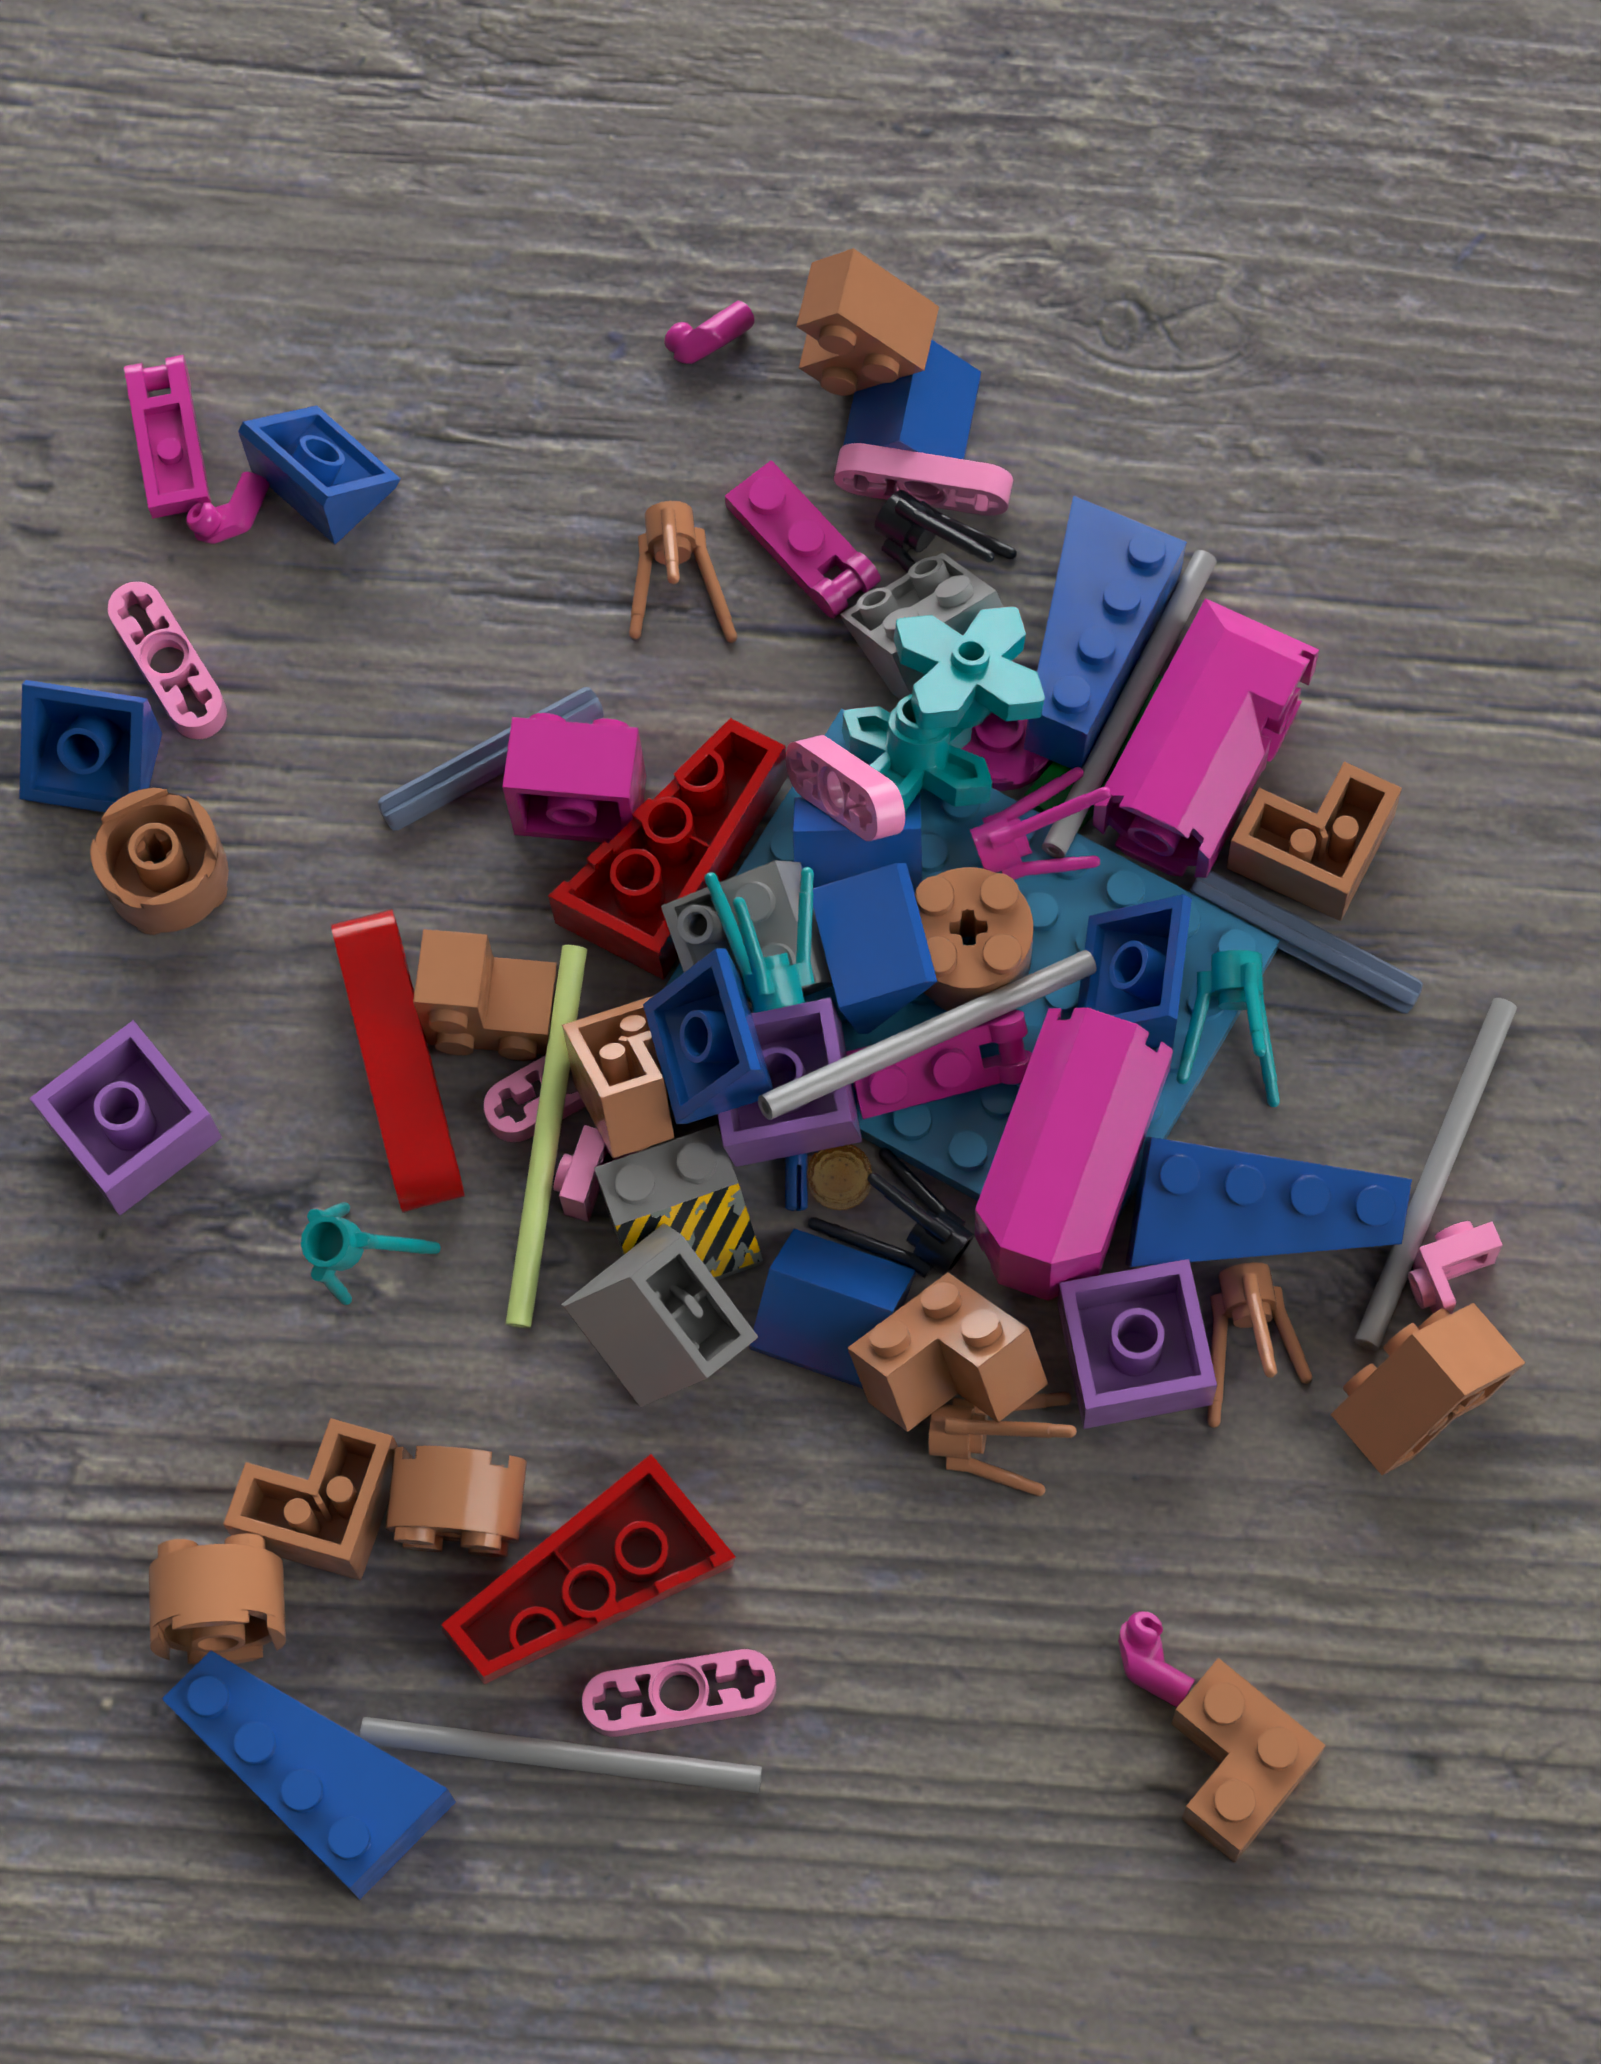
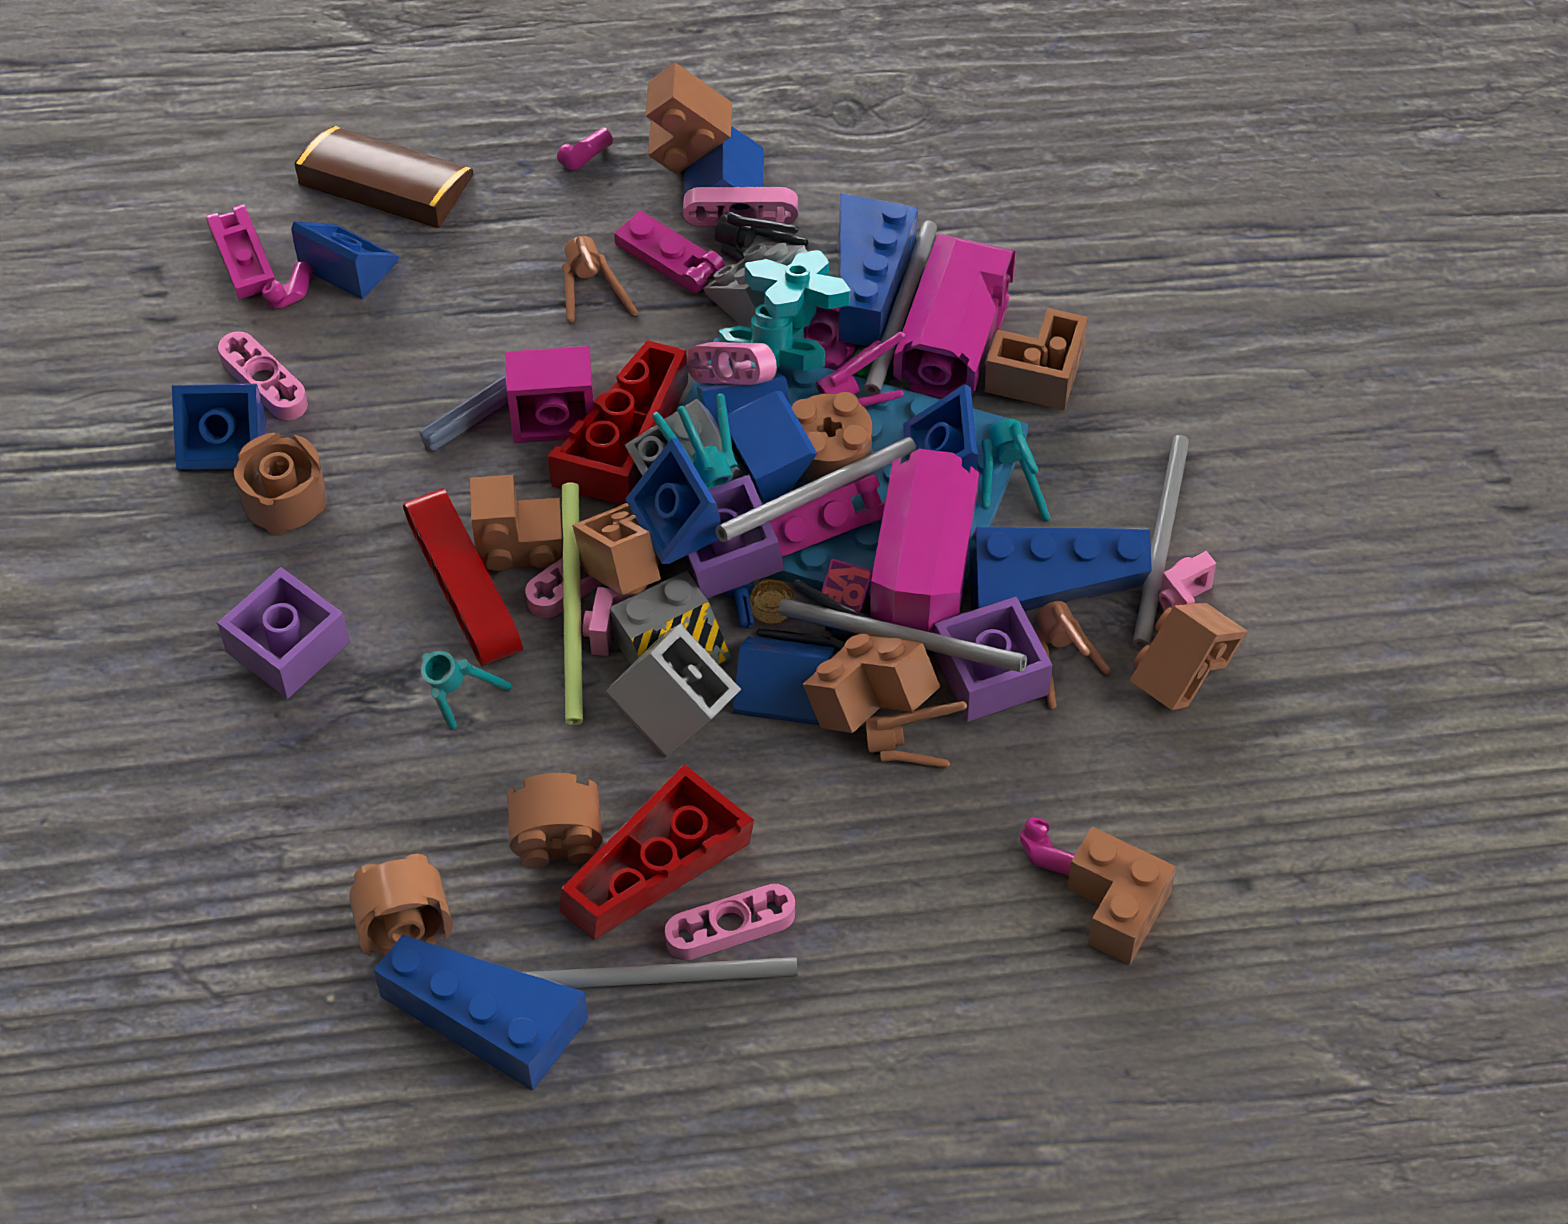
camera: 15 degrees left, 15 degrees down
(331, 1515) = (469, 844): nougat brick -> none
(400, 328) = (382, 175): none -> reddish brown slope
(949, 1179) = (847, 584): none -> tile
(1010, 1295) = (931, 641): none -> light grey piece
(1313, 944) = (1054, 425): sand blue axle -> none

